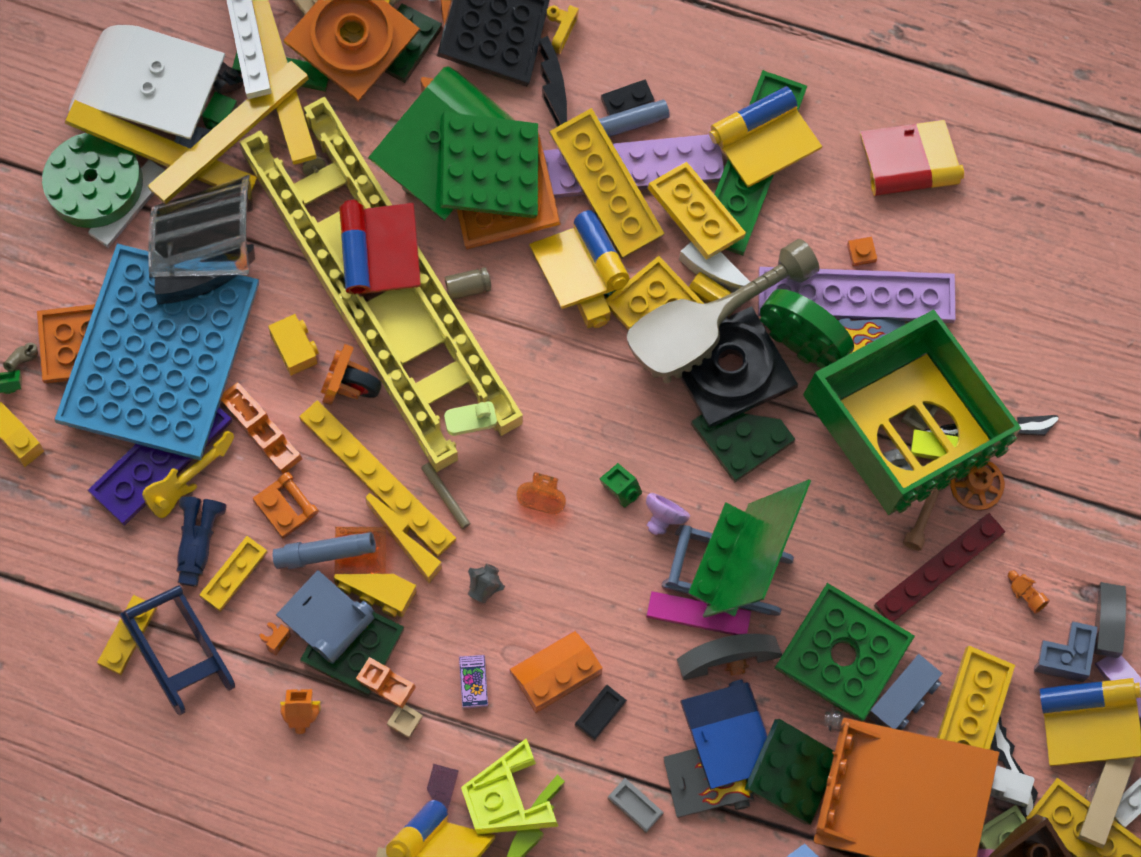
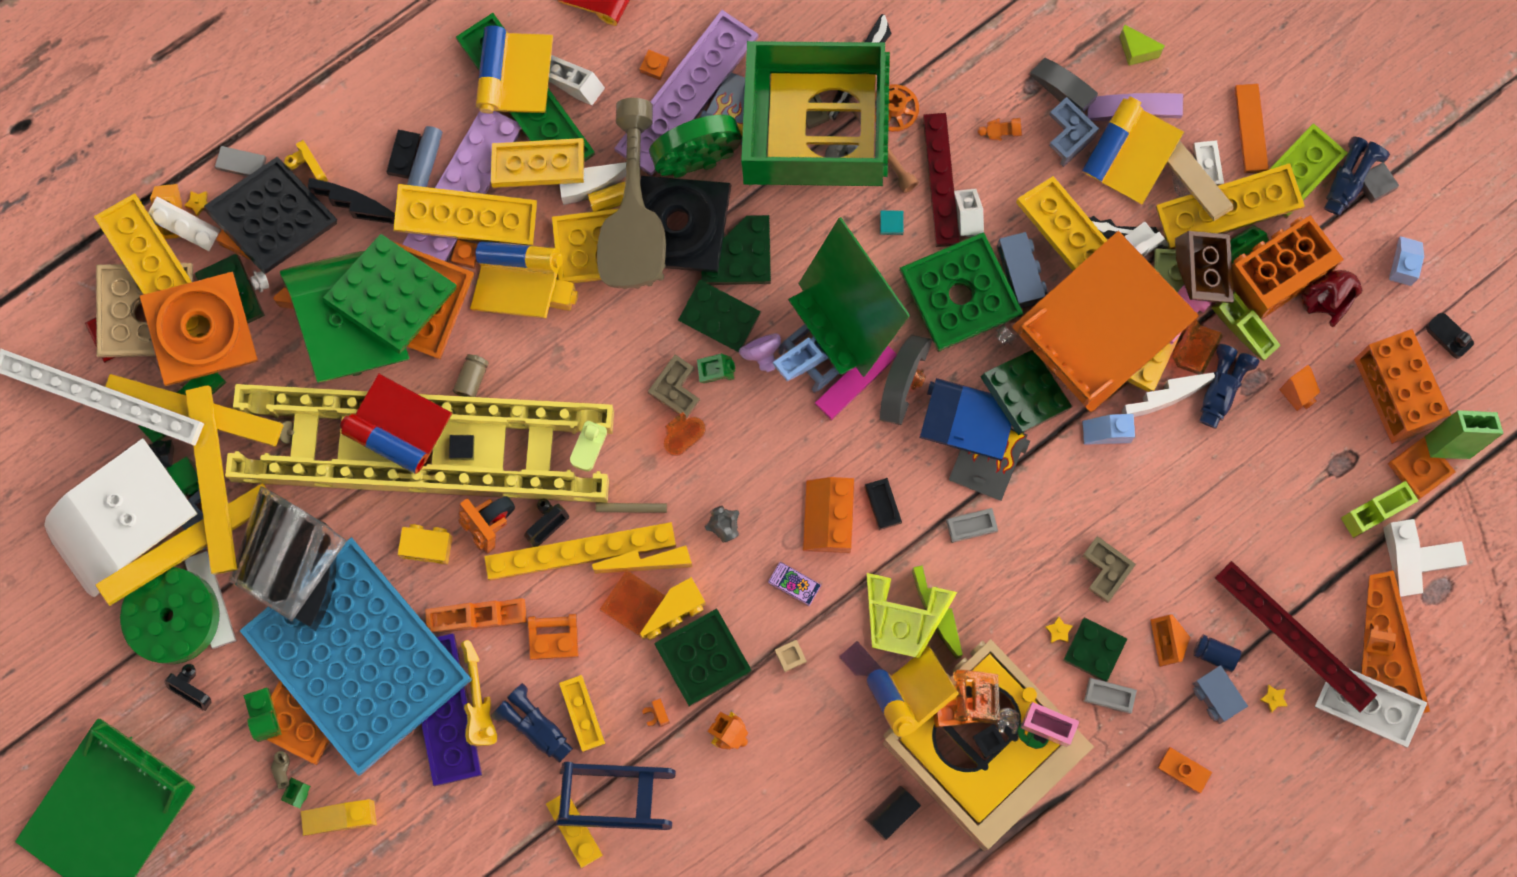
camera: 50 degrees left, 5 degrees up
(38, 229) = (181, 687): none -> black piece
(51, 313) = (263, 719): none -> green plate
(301, 554) = (604, 650): sand blue piece -> none
(325, 616) = (669, 663): sand blue door -> none
(382, 434) = (547, 524): none -> black piece
(385, 683) = (753, 651): orange slope -> none
(398, 316) = (461, 447): none -> black tile
(430, 58) = (259, 281): none -> white plate
(573, 206) = (464, 254): none -> orange plate
(575, 456) = (669, 387): none -> dark tan plate
(671, 456) = (719, 316): none -> dark green plate
(676, 548) = (800, 359): none -> light blue slope
(796, 193) = (575, 80): none -> white slope
(867, 550) = (891, 222): none -> teal tile
(925, 611) = (969, 212): none -> white slope
(927, 445) = (843, 121): neon yellow tile -> none

